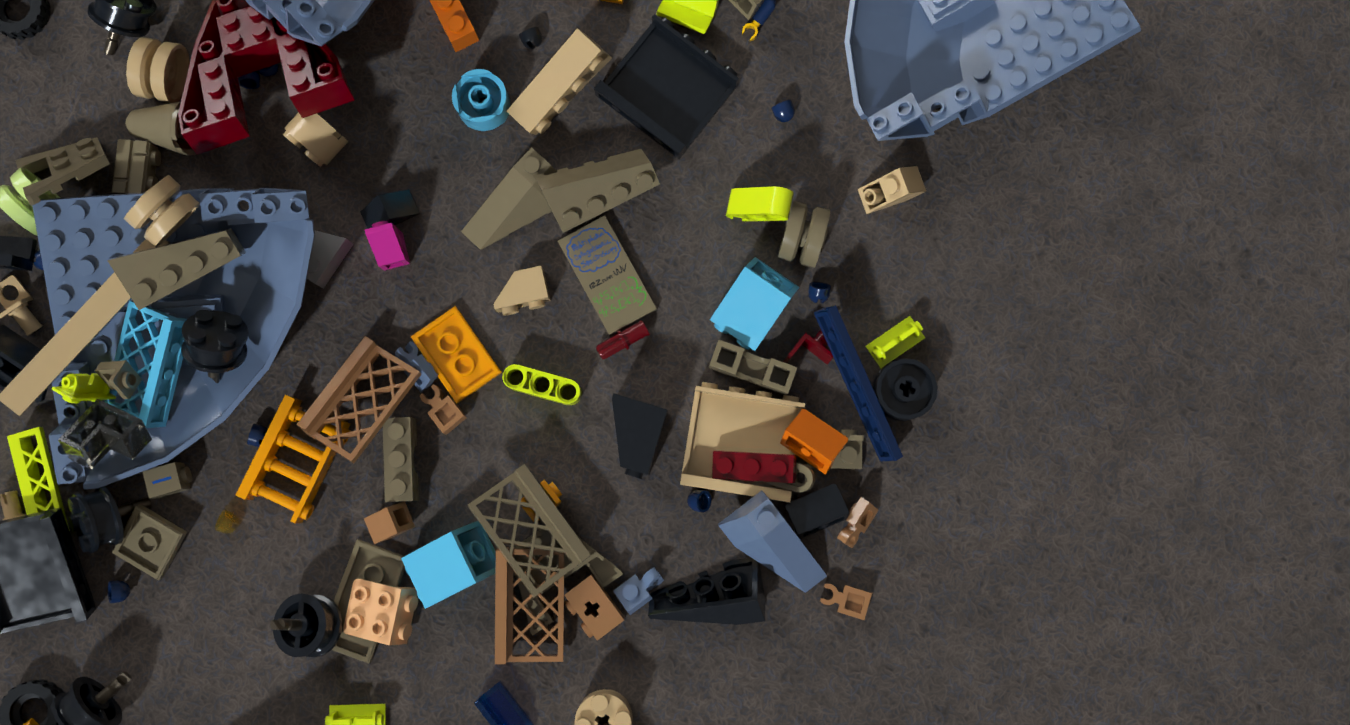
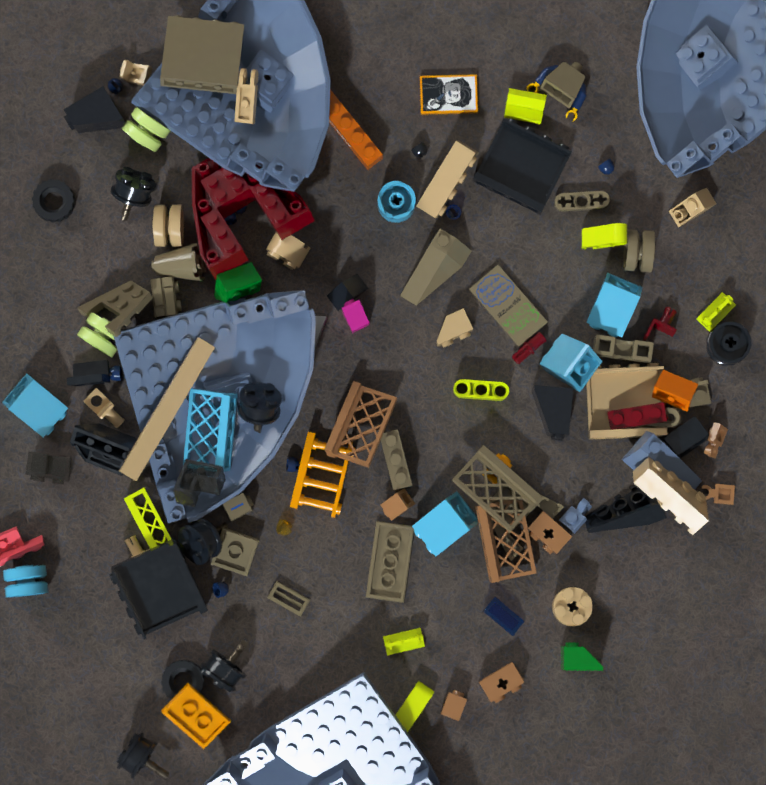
camera: 15 degrees left, 0 degrees up
(83, 388) = (176, 453): neon yellow hinge -> none
(119, 376) = (197, 440): dark tan bracket -> none
(158, 207) = (207, 323): tan wheel -> none
(166, 268) = (222, 357): dark tan wedge -> none
(228, 639) = (302, 606): none -> dark tan tile
(229, 165) = (237, 283): none -> green slope
(307, 625) = (358, 583): black wheel -> none
(380, 612) = (404, 565): light nougat bracket -> none
(426, 369) = (384, 386): sand blue plate -> none
(445, 411) = (417, 422): medium nougat plate -> none
(456, 354) = (416, 381): light orange tile -> none
(553, 132) = (449, 213): none -> clear blue hinge
(596, 187) = (489, 246): dark tan wedge -> none
(675, 371) = (571, 361): none -> medium azure slope
(699, 500) = (604, 447): dark blue hinge -> none
(748, 143) = (567, 197): none -> dark tan beam
(779, 590) = (672, 494): none -> wedge
(820, 291) = (656, 287): dark blue hinge -> none
(858, 384) = (697, 345): dark blue tile -> none

